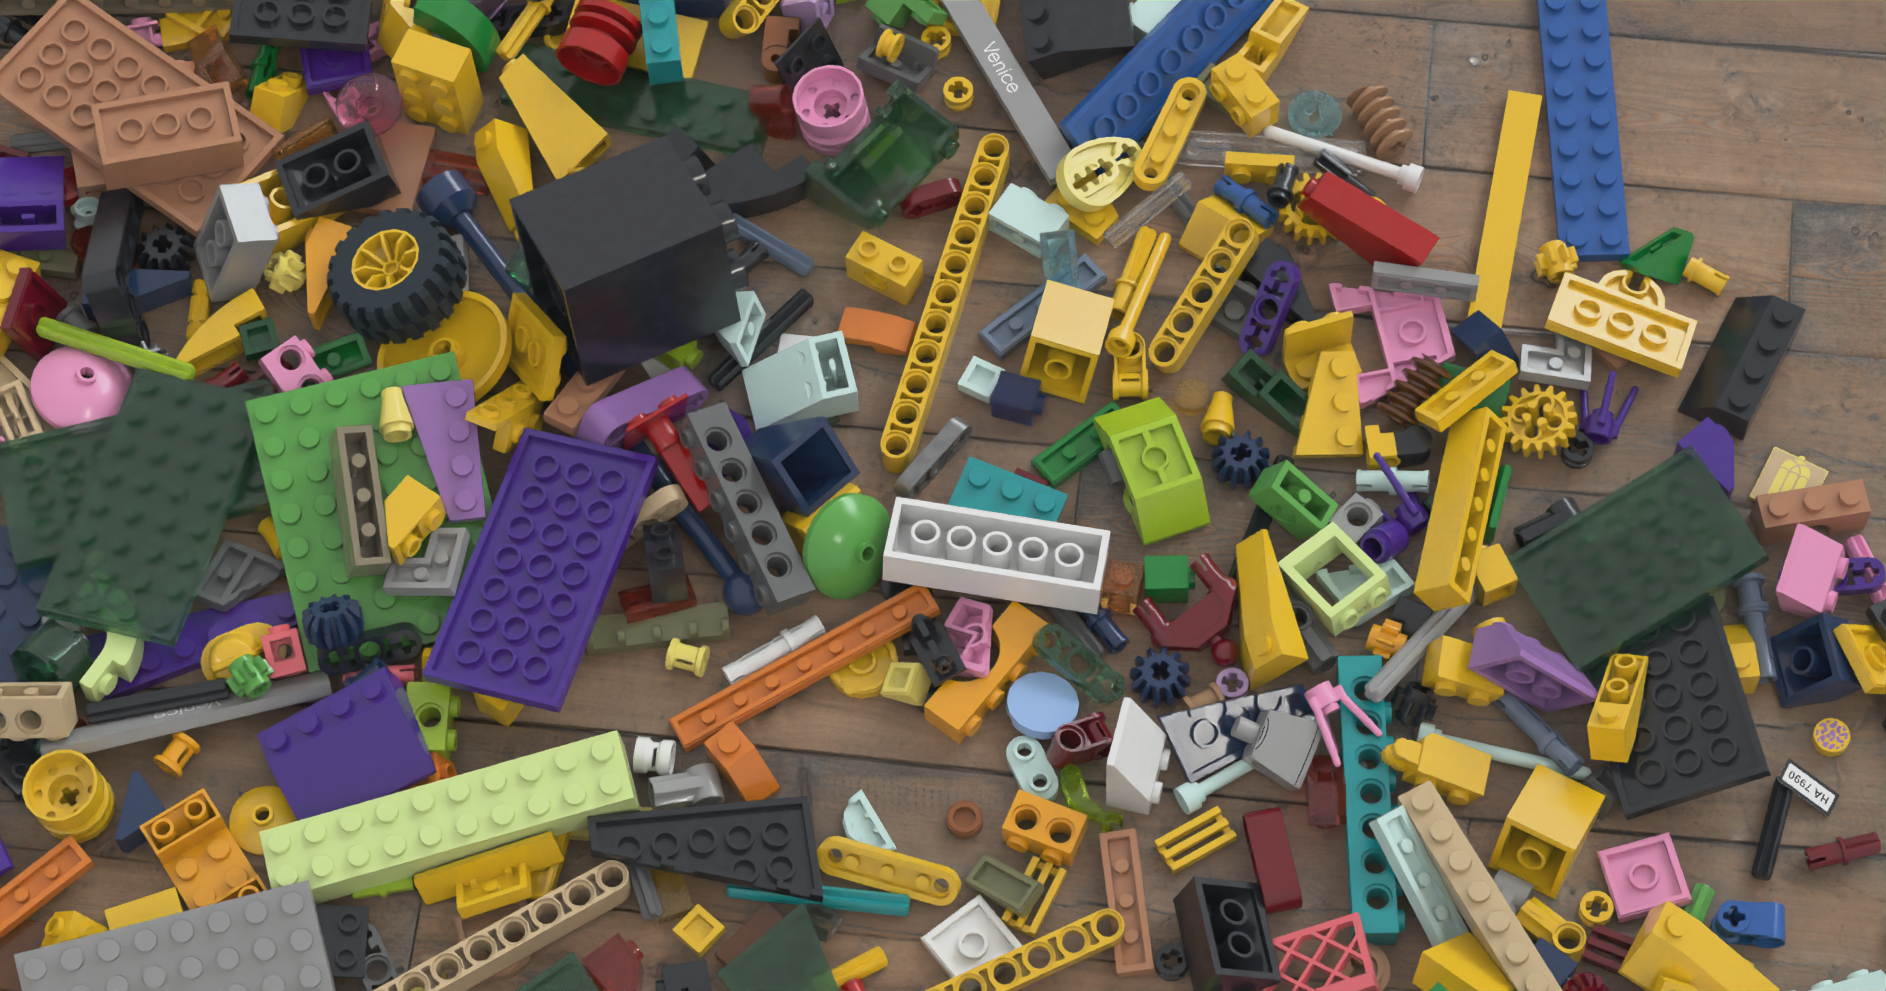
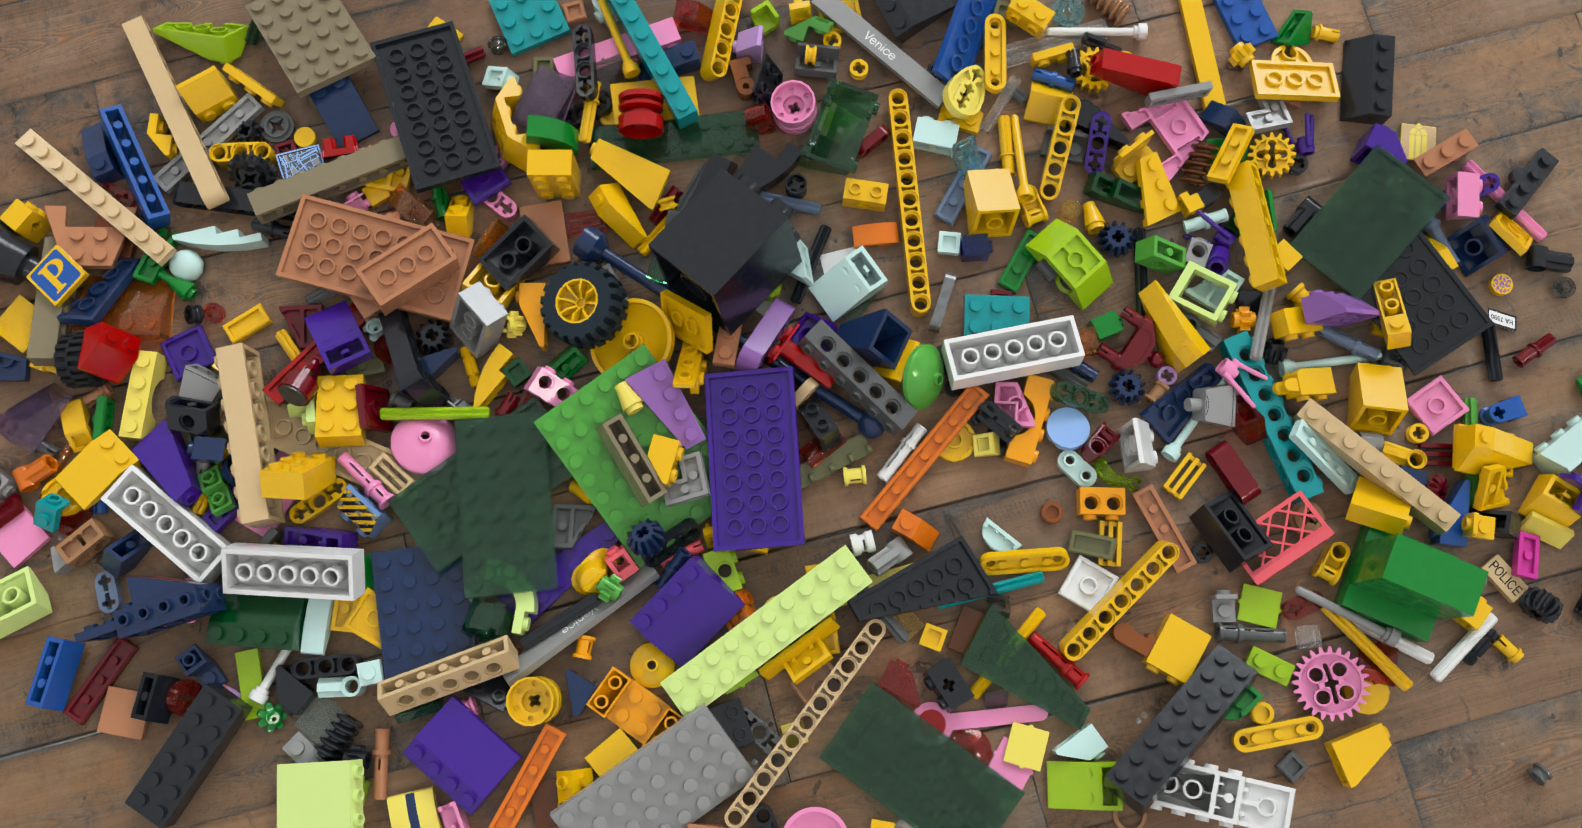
camera: 25 degrees left, 15 degrees up
(366, 92) = (510, 194): clear pink dish -> none
(782, 217) = (798, 183): none -> black wheel

